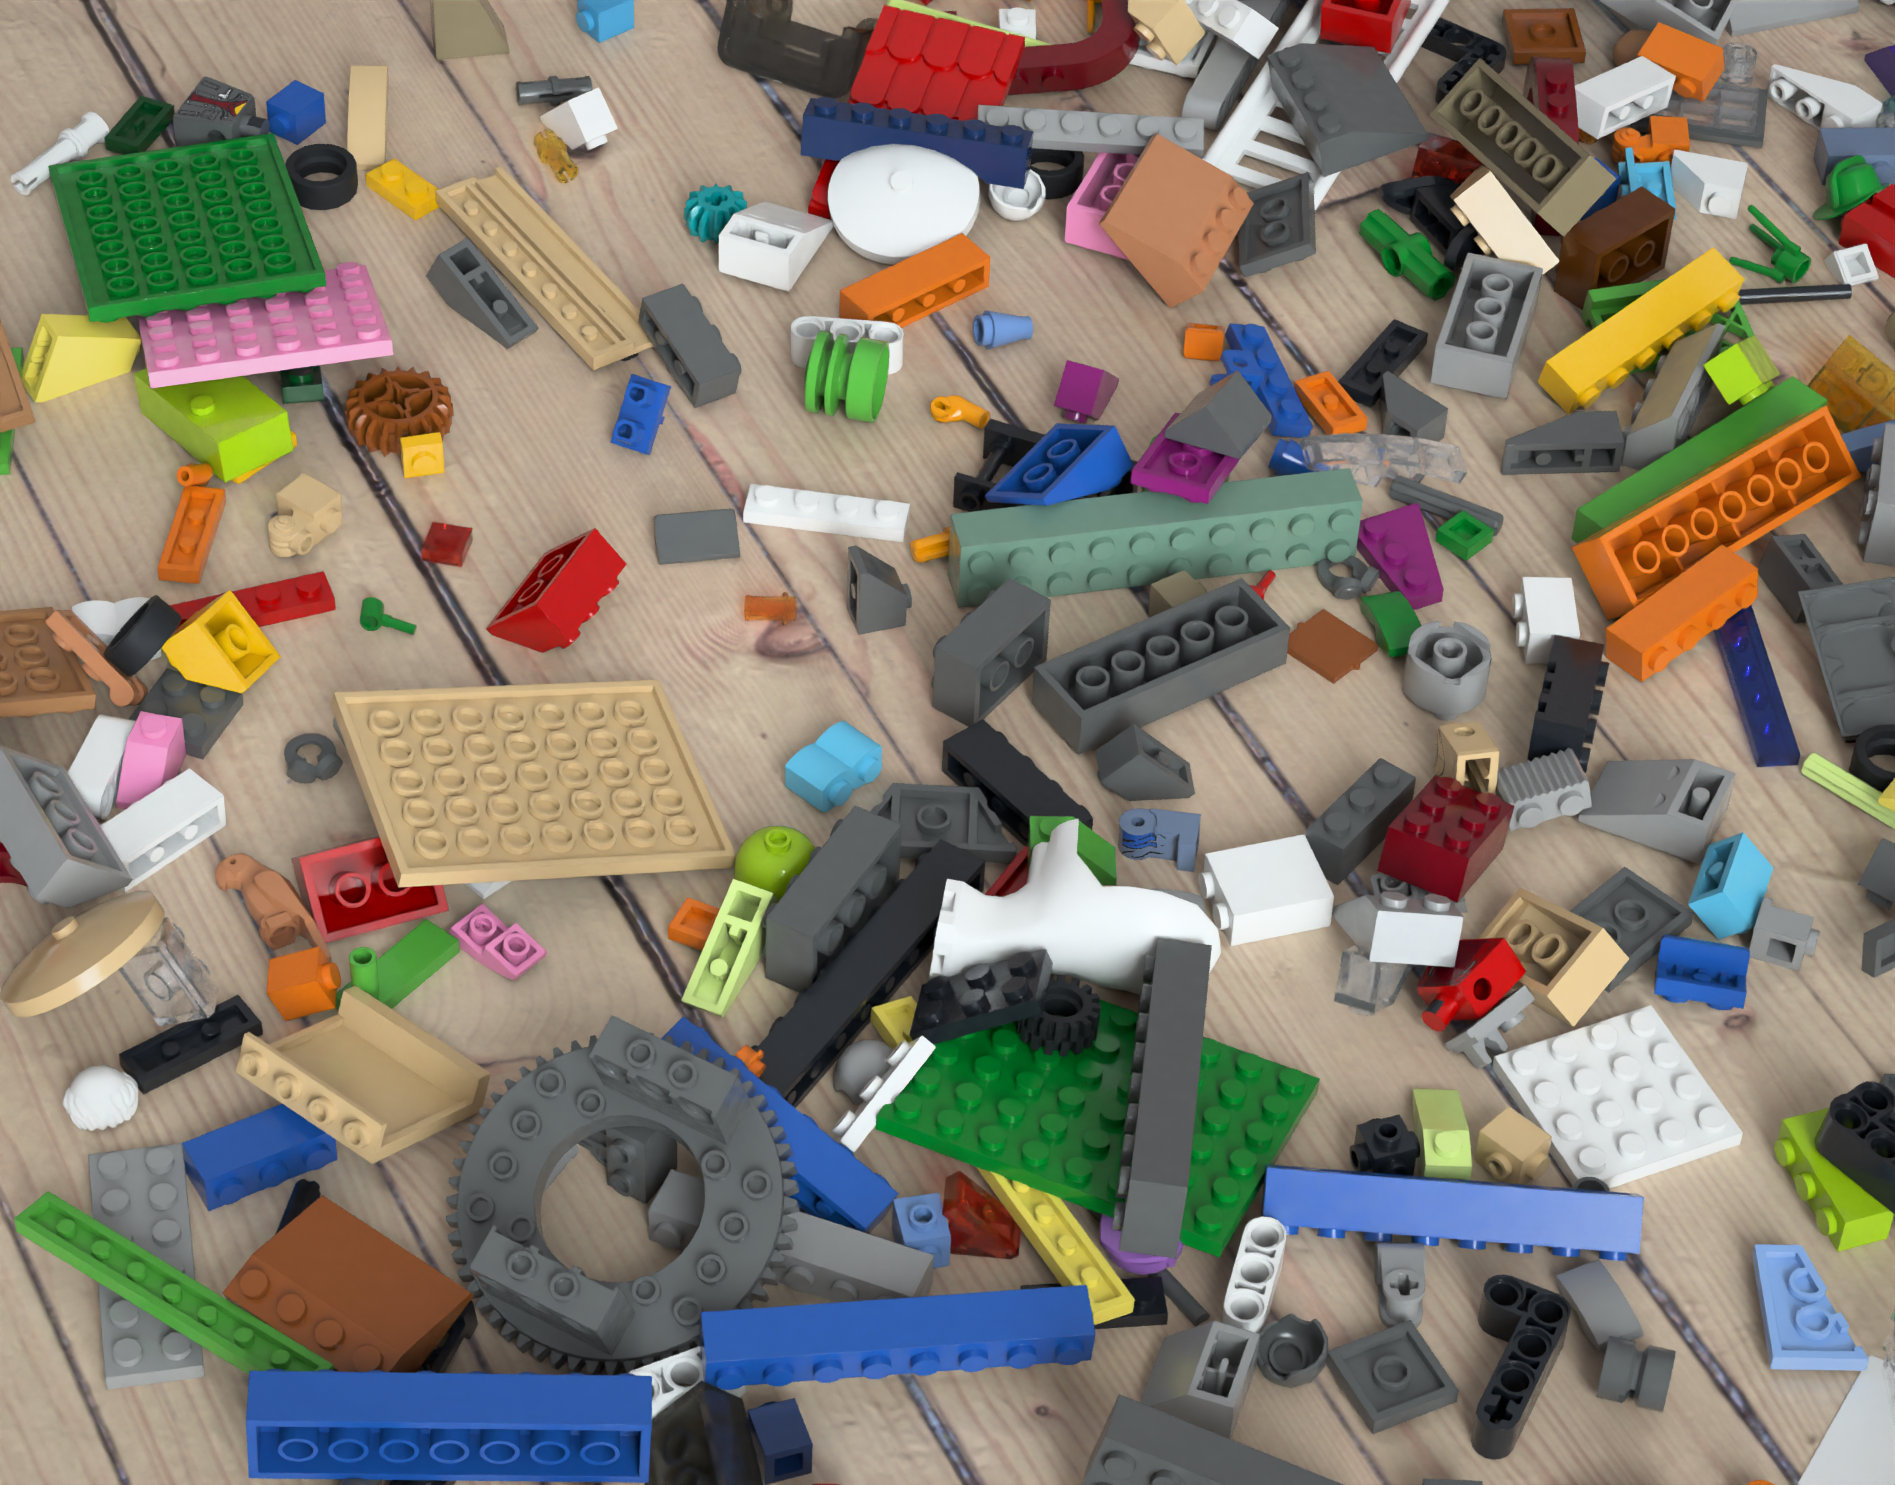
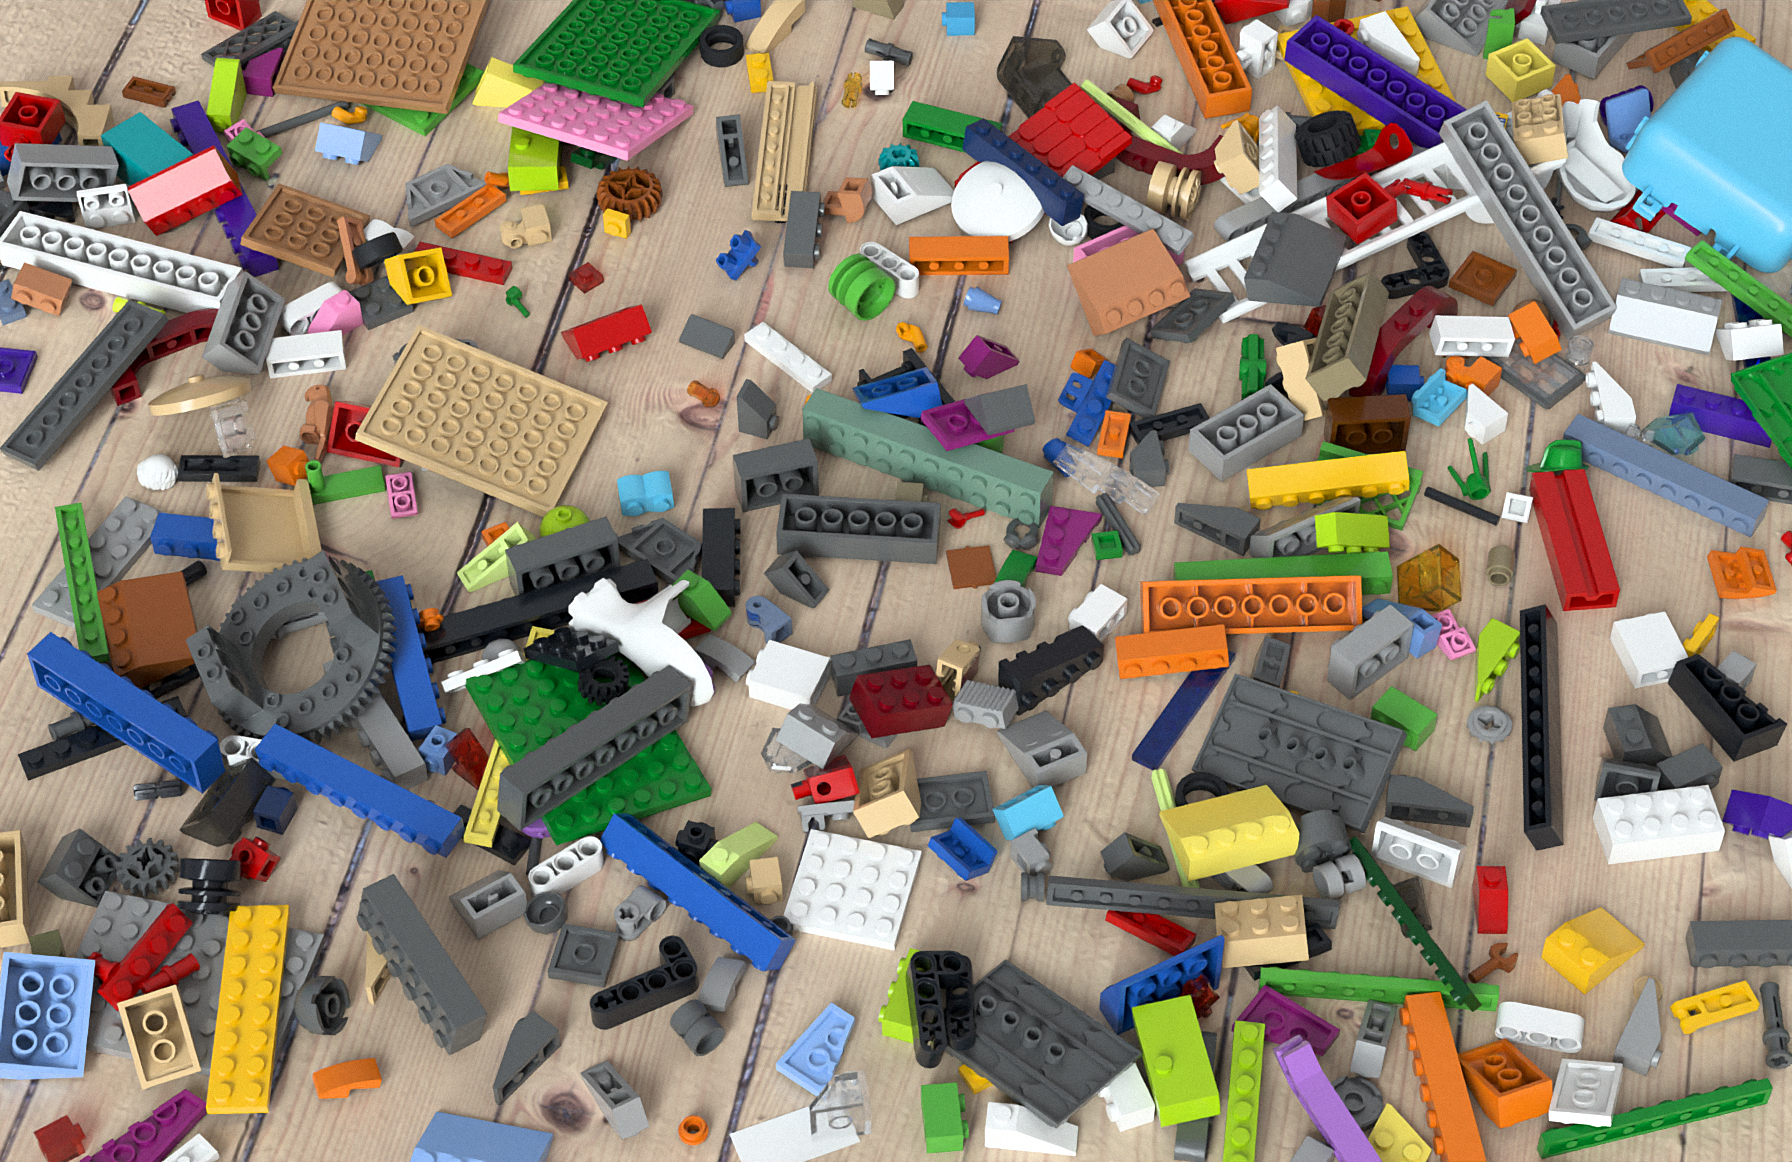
camera: 40 degrees right, 5 degrees up
(120, 531) = (438, 192): none -> light grey wing
(719, 280) = (850, 199): none -> nougat brick
(737, 145) = (938, 125): none -> green brick
(1104, 85) = (1179, 191): none -> tan wheel
(1294, 326) = (1137, 379): none -> dark grey plate
(1823, 971) = (1032, 886): none -> dark grey wheel

